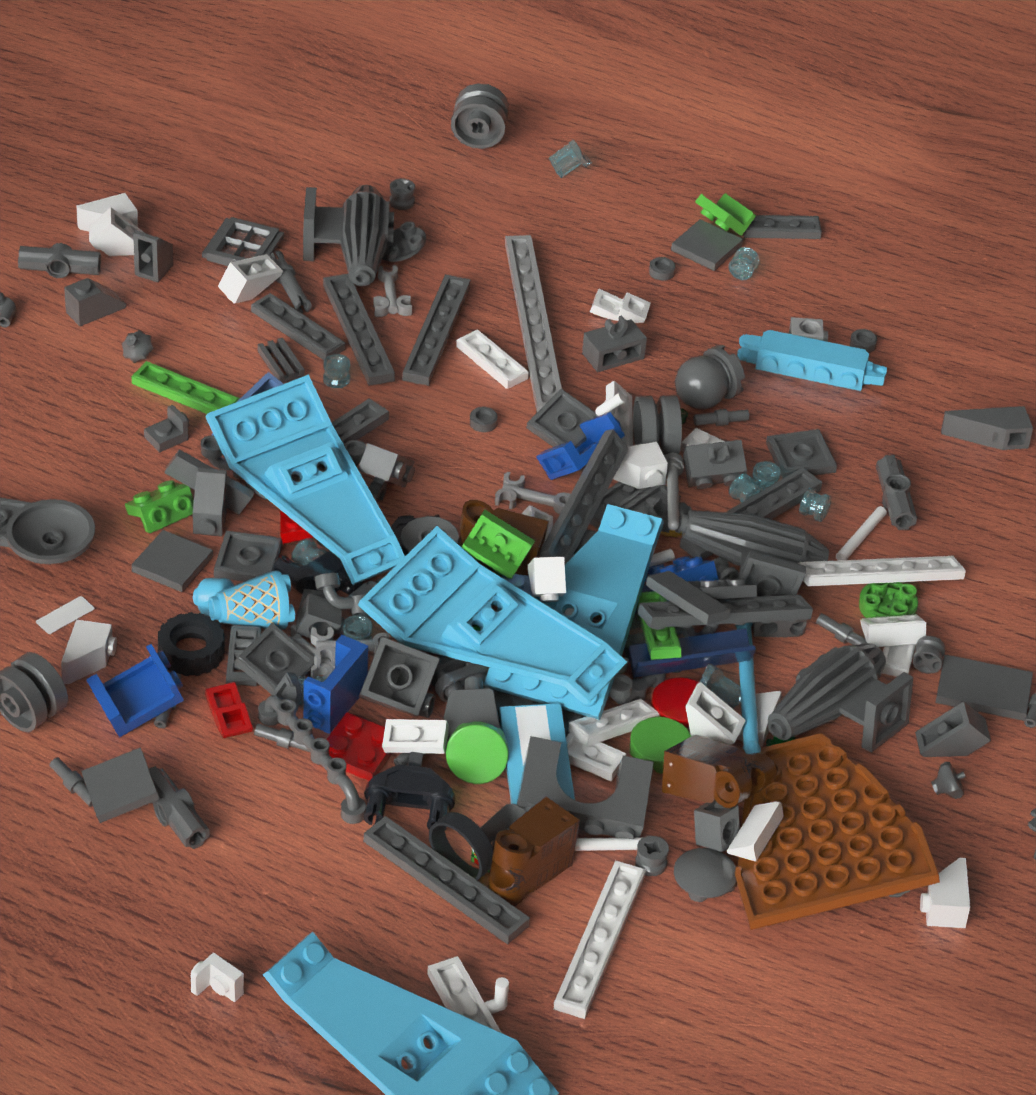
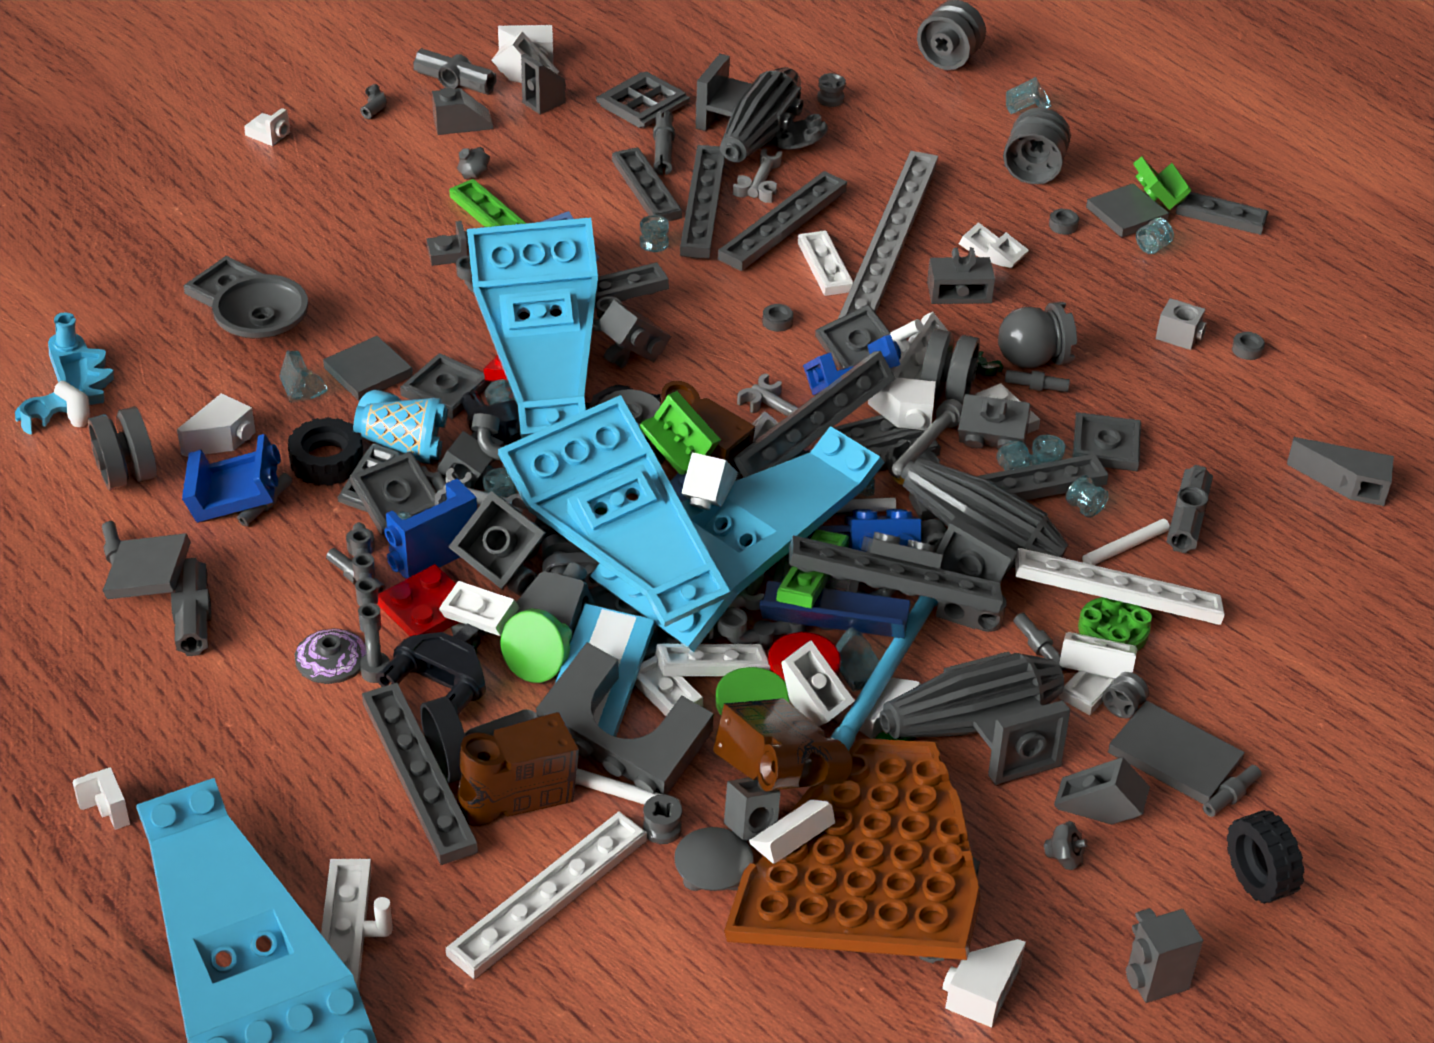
camera: 25 degrees right, 0 degrees up
(65, 615) = (231, 389): white sticker -> none
(123, 587) = (299, 381): none -> clear light blue tile
(162, 506) = (393, 315): bright green bracket -> none
(184, 469) = (443, 299): dark grey tile -> none
(210, 502) = (433, 320): slope -> none
(228, 710) = (319, 526): red slope -> none
(249, 278) = (621, 126): white slope -> none
(289, 688) = (377, 525): dark grey tile -> none
(293, 370) = (607, 199): dark grey tile -> none
(309, 812) = (330, 656): none -> dish
(611, 205) = (1037, 146): none -> dark grey wheel
(688, 597) = (852, 545): dark grey tile -> none
(811, 359) = (1173, 348): medium azure hinge -> none

